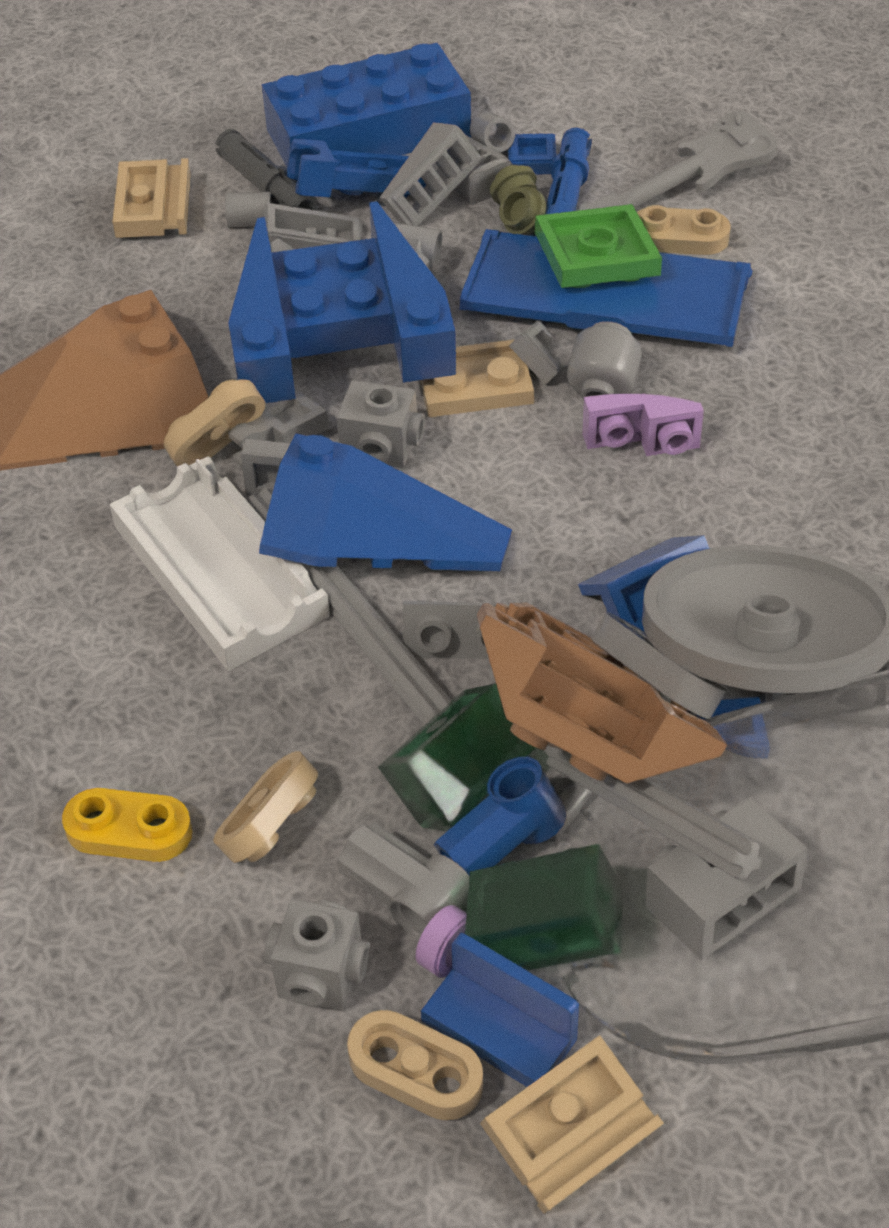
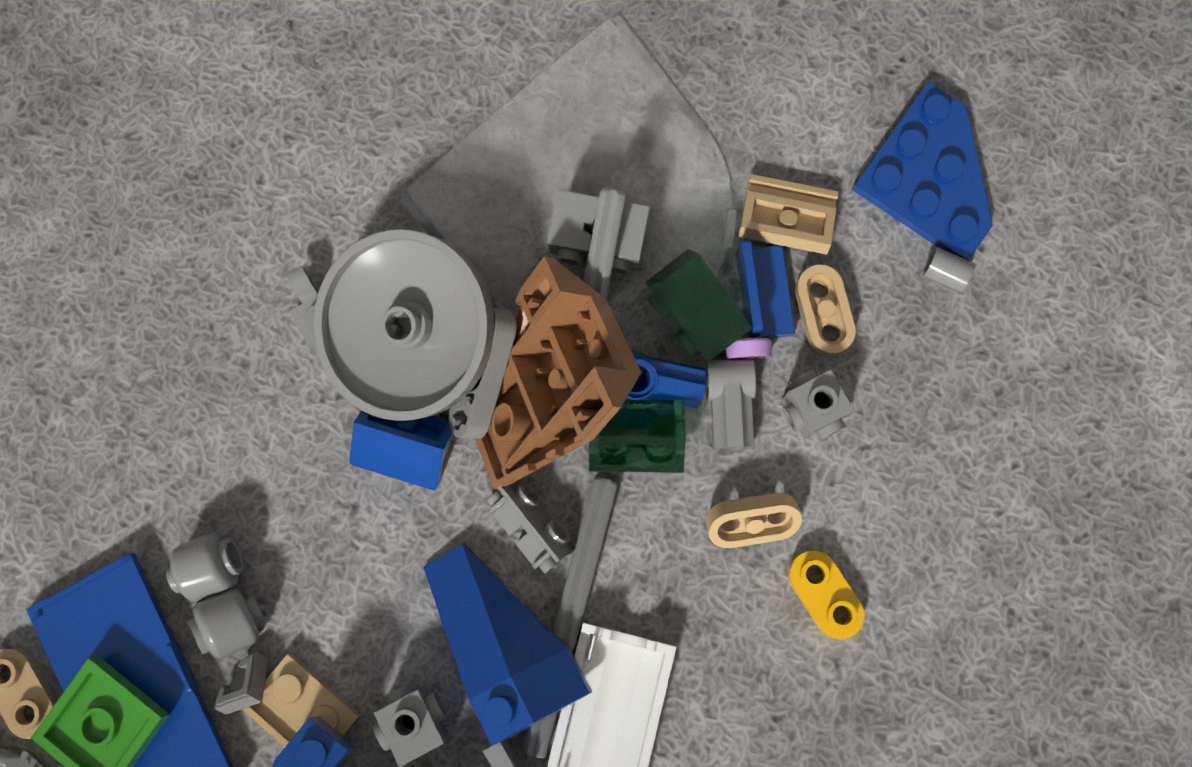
camera: 130 degrees left, 30 degrees up
(657, 421) = (260, 540): lavender slope -> none
(671, 368) = (204, 567): none -> light grey head

